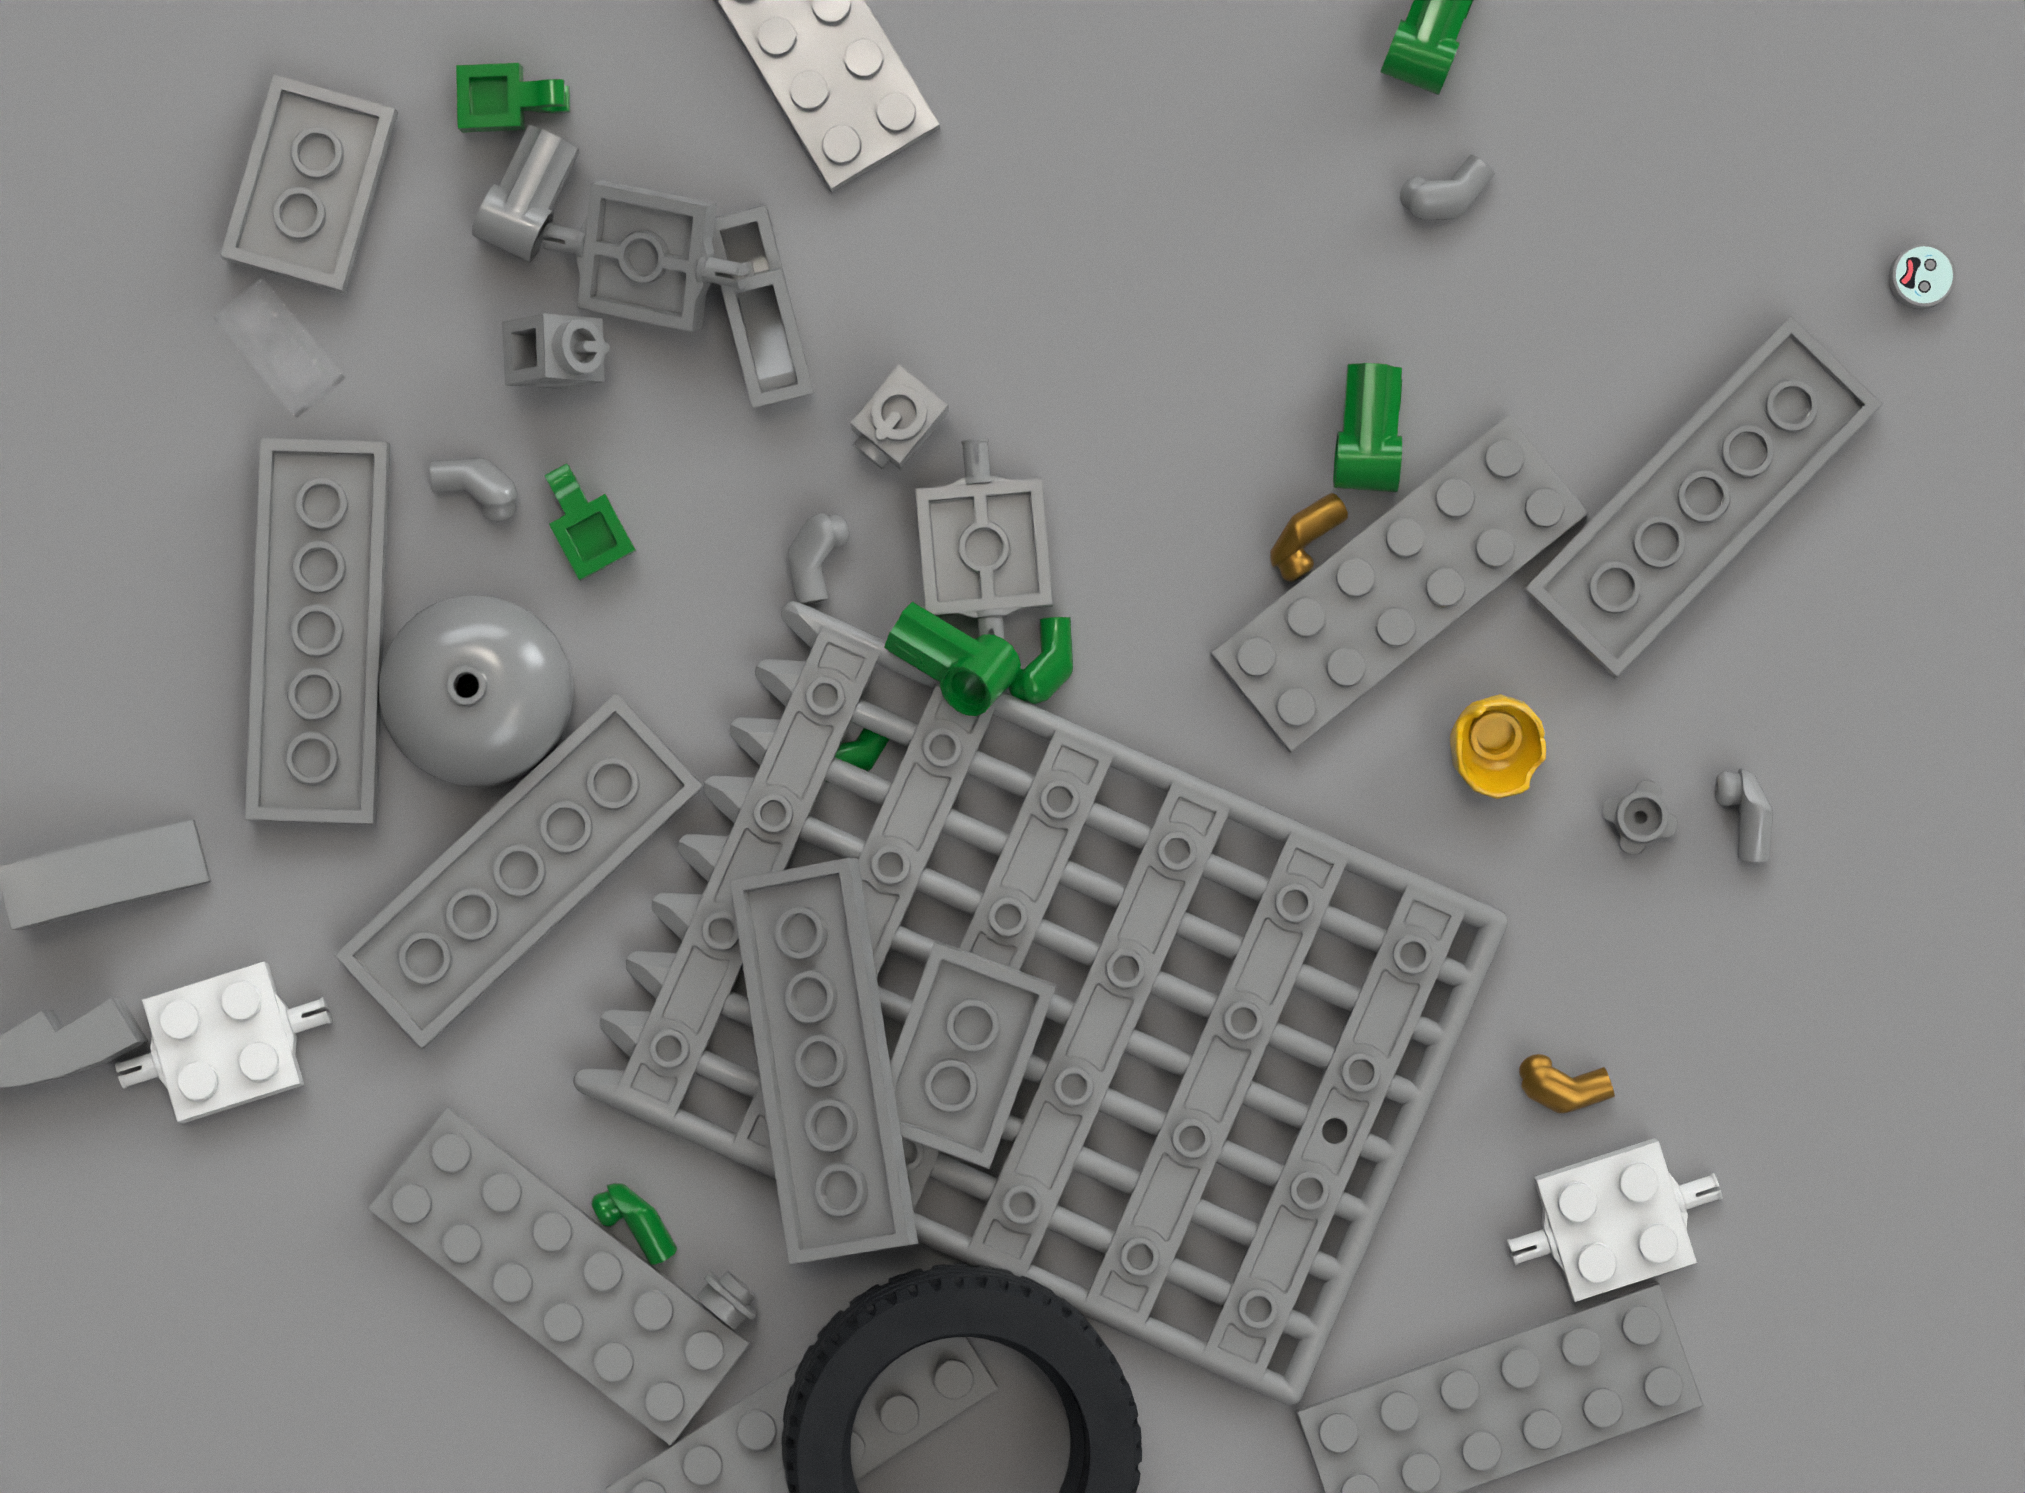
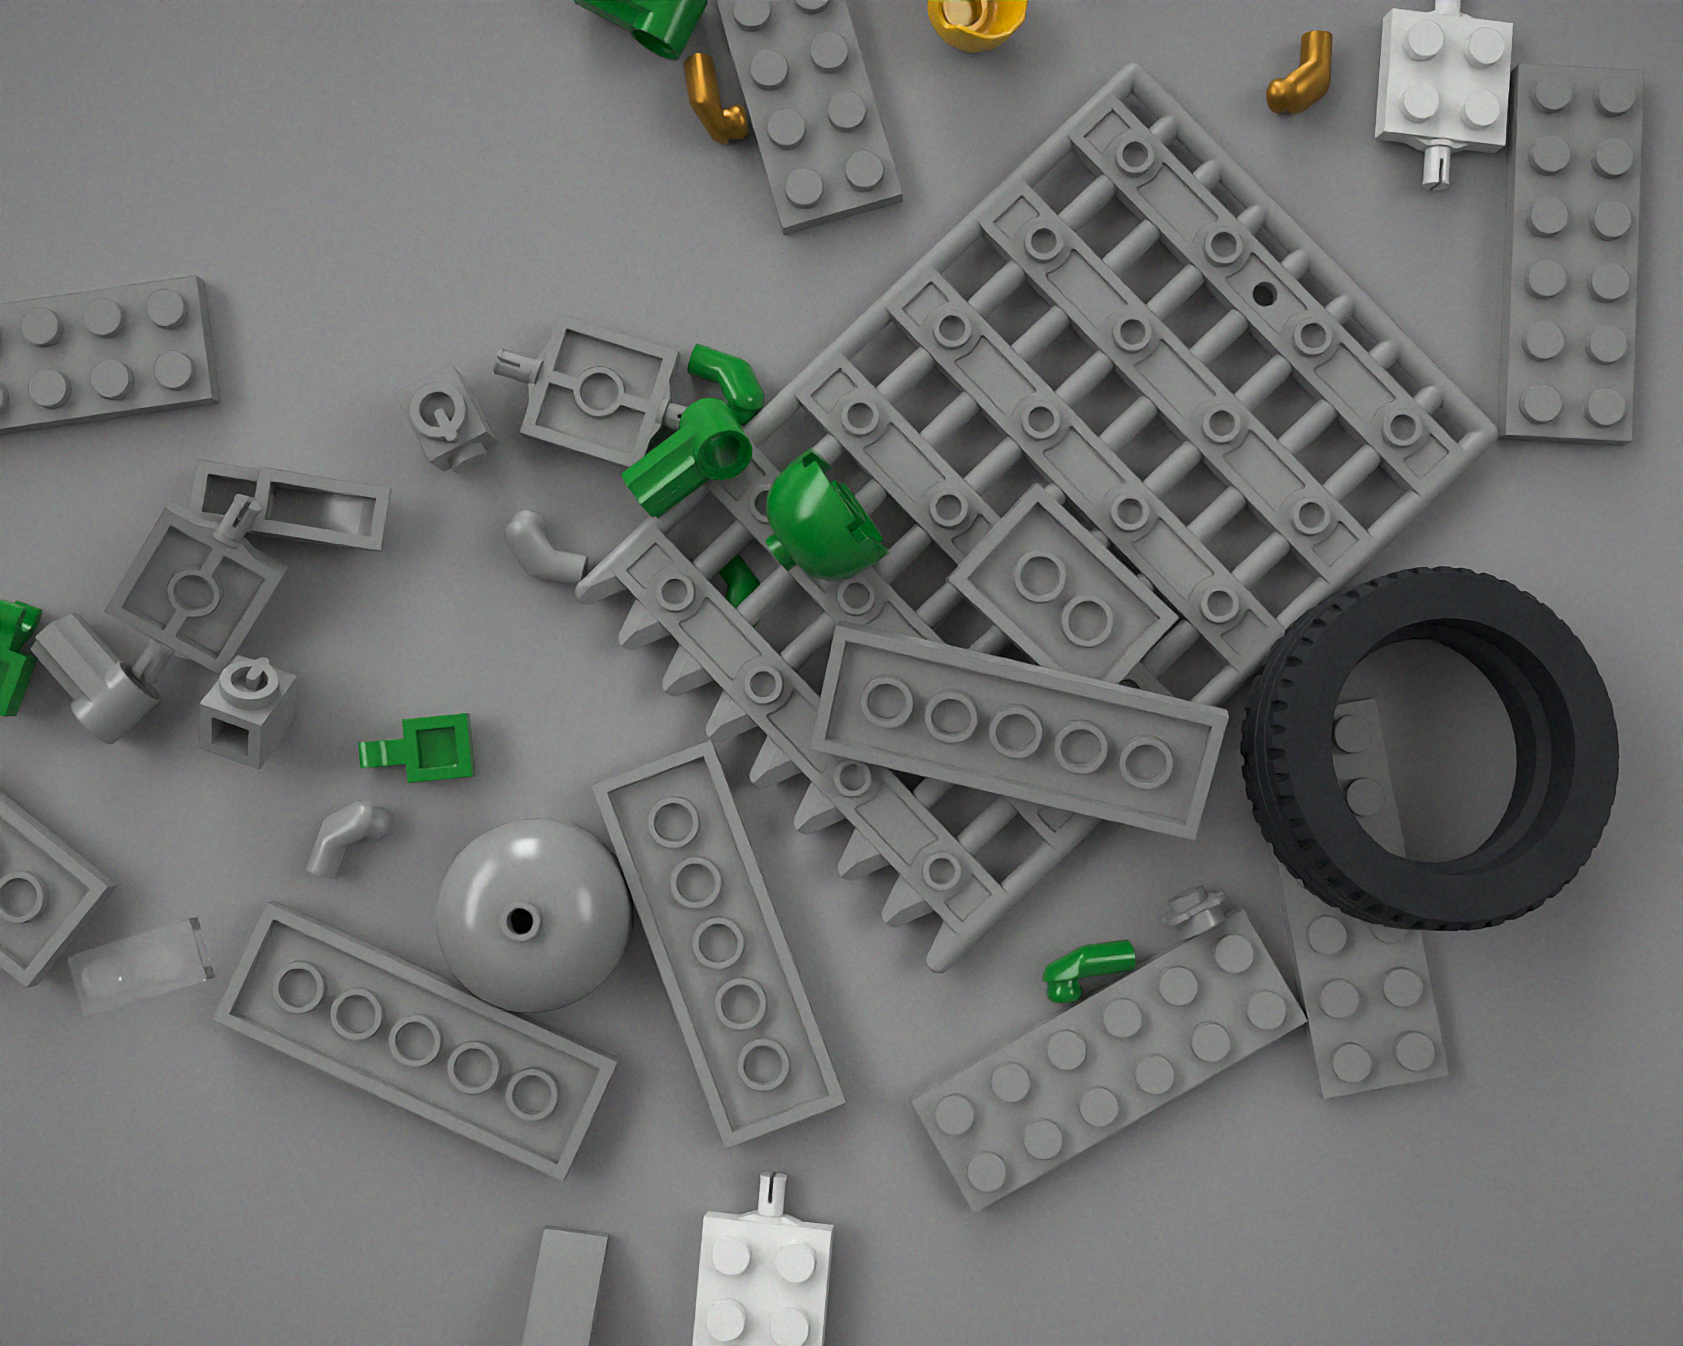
camera: 65 degrees left, 0 degrees up
(939, 805) = (820, 523): none -> green cylinder

